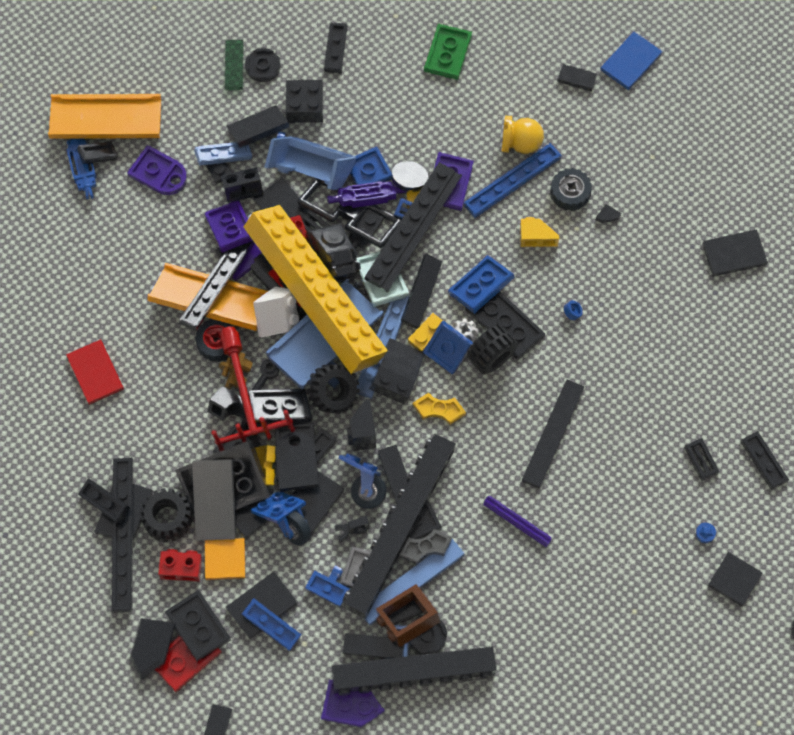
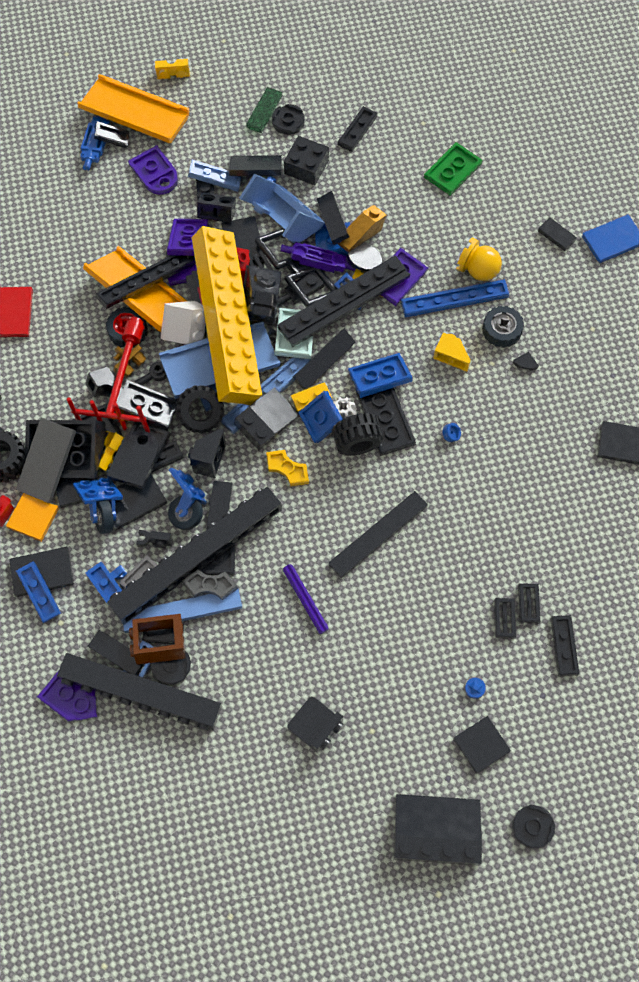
camera: 25 degrees right, 0 degrees up
(113, 63) = (179, 68): none -> yellow piece
(361, 149) = (333, 218): none -> black tile
(394, 149) = (364, 227): none -> pearl gold slope
(584, 627) = (315, 724): none -> black bracket
(716, 452) = (529, 619): none -> black tile
(733, 669) = (438, 830): none -> black slope

